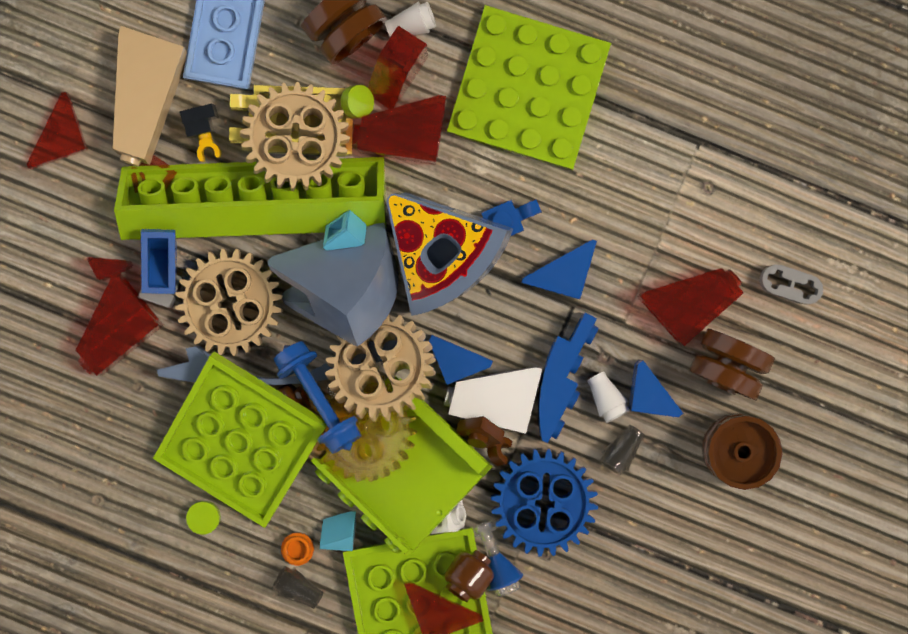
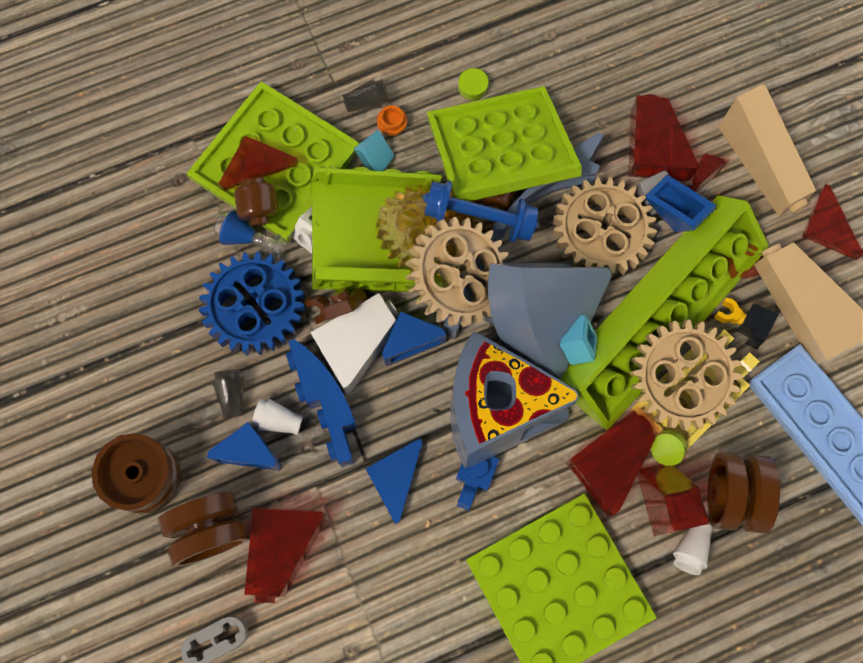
camera: 140 degrees right, 15 degrees down
(47, 232) = (767, 150): none -> tan slope

